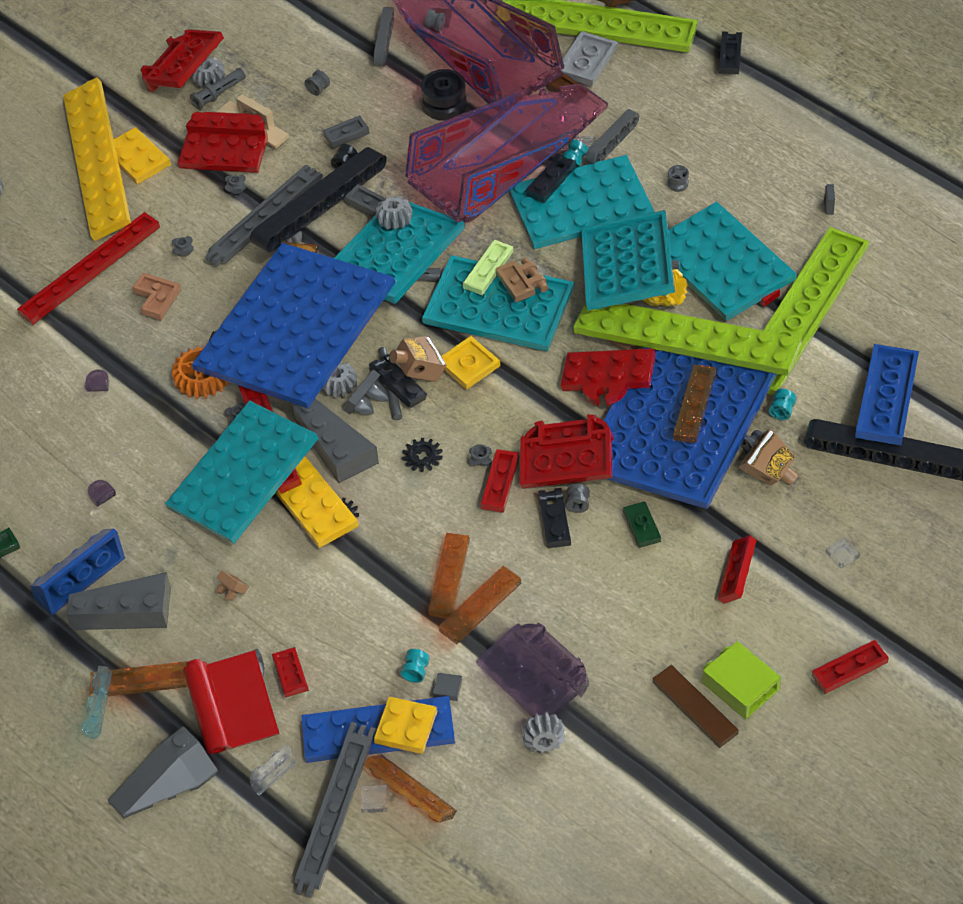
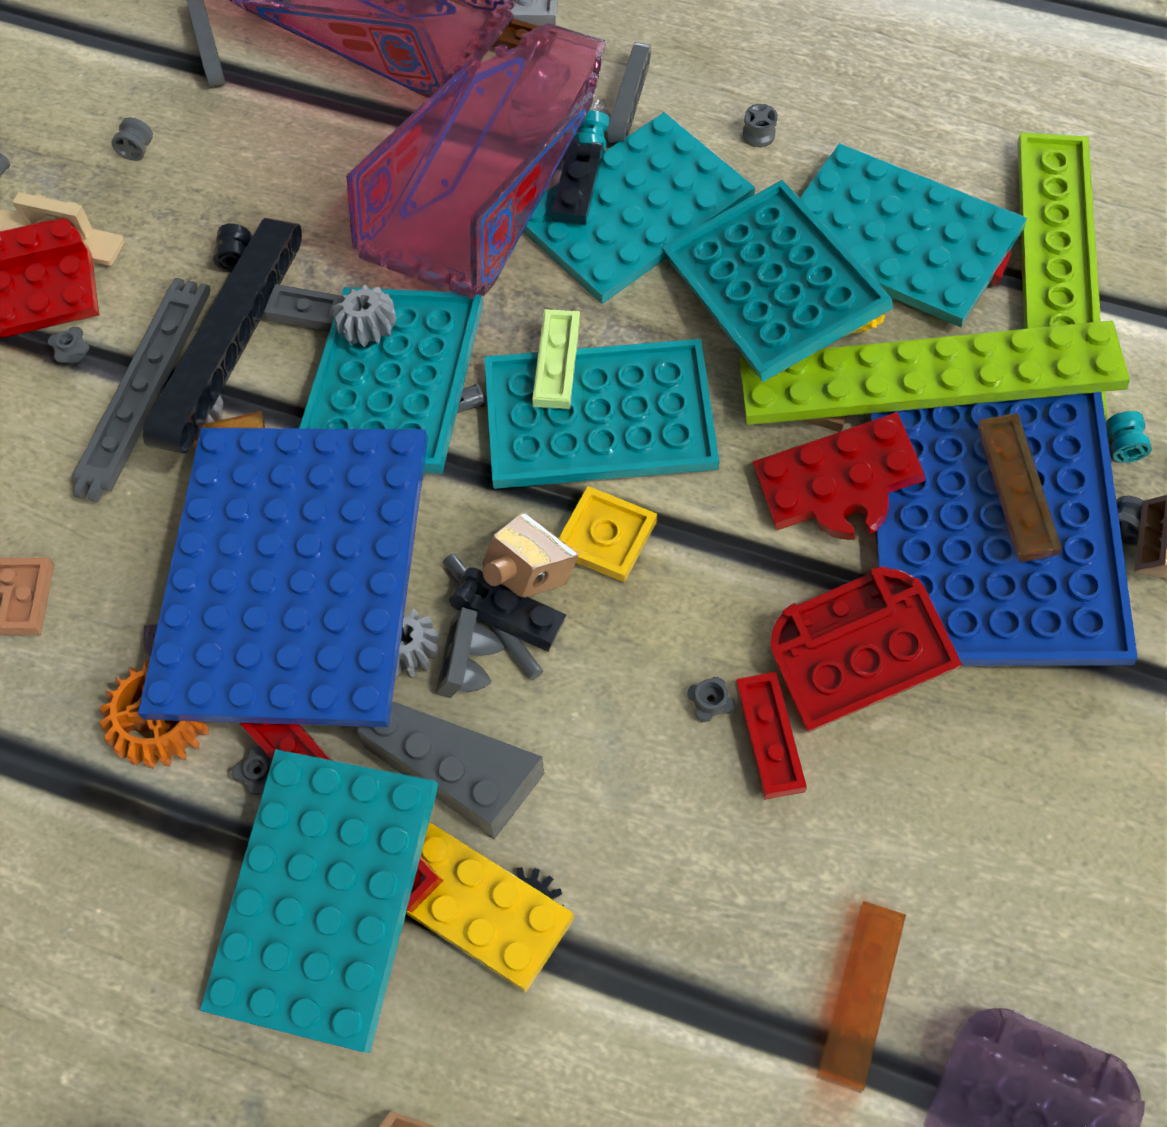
camera: 25 degrees left, 10 degrees up
(100, 492) = (64, 1030): clear purple tile -> none
(182, 246) = (29, 490): dark grey plate -> none
(346, 131) = (215, 204): dark grey plate -> none
(418, 448) = (622, 719): black gear -> none
(443, 94) = (343, 100): black wheel -> none
(449, 575) = (779, 957): clear orange plate -> none
(517, 283) = (618, 370): medium nougat plate -> none
(554, 518) = (893, 771): black plate -> none
(577, 498) = (915, 721): dark grey wheel -> none
(642, 524) = (1038, 728): dark green plate -> none
(829, 199) = (993, 91): dark grey tile -> none

